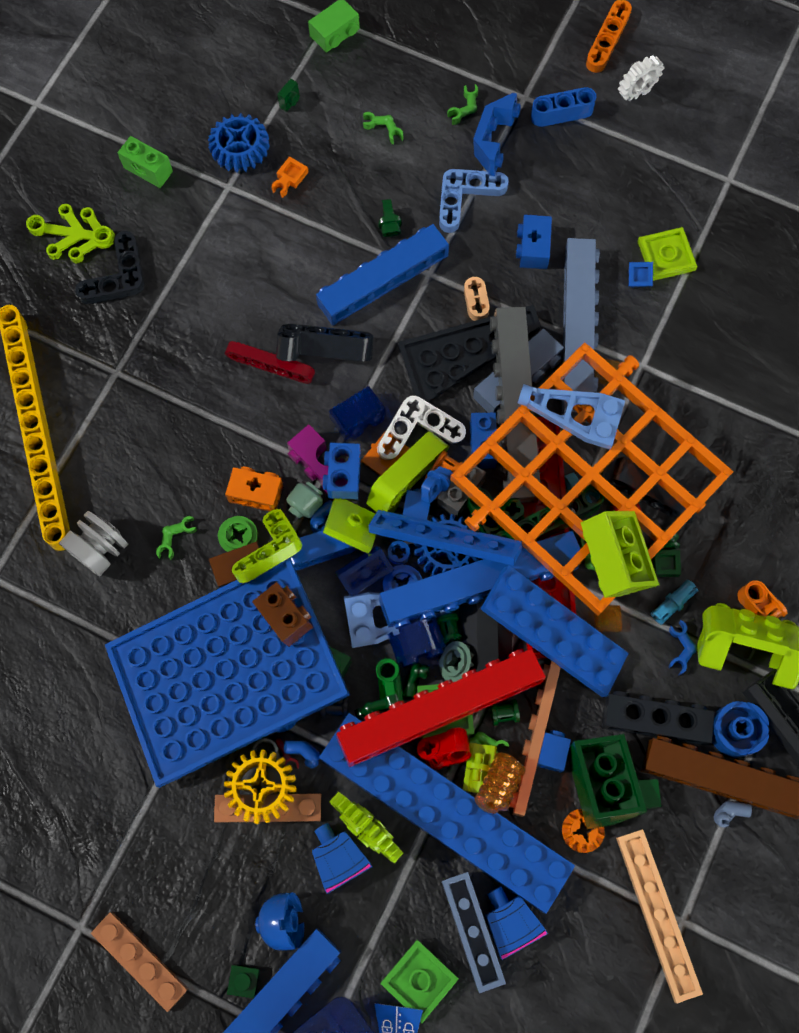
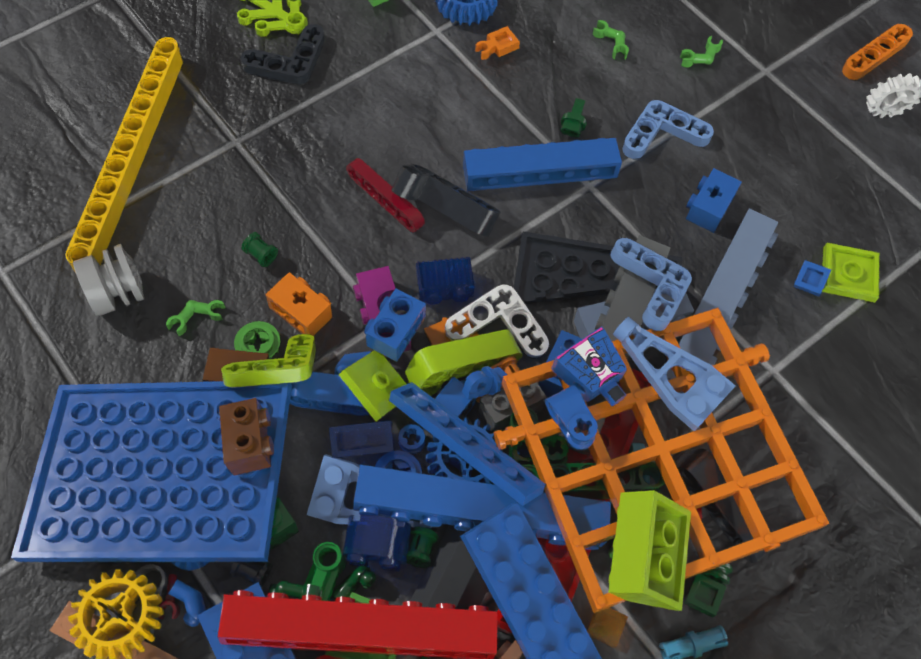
camera: 20 degrees right, 10 degrees down
(195, 458) = (259, 249): none -> dark green bush
(304, 500) = (343, 338): sand green head -> none
(450, 657) = (405, 578): sand green gear -> none
(481, 298) = (620, 225): light nougat beam -> none
(498, 112) = (733, 71): blue slope -> none
(516, 437) = (592, 367): none -> blue torso
(517, 480) = (570, 413): none -> blue piece
(535, 339) = (666, 282): none -> medium blue beam
(563, 106) = (801, 92): blue beam -> none

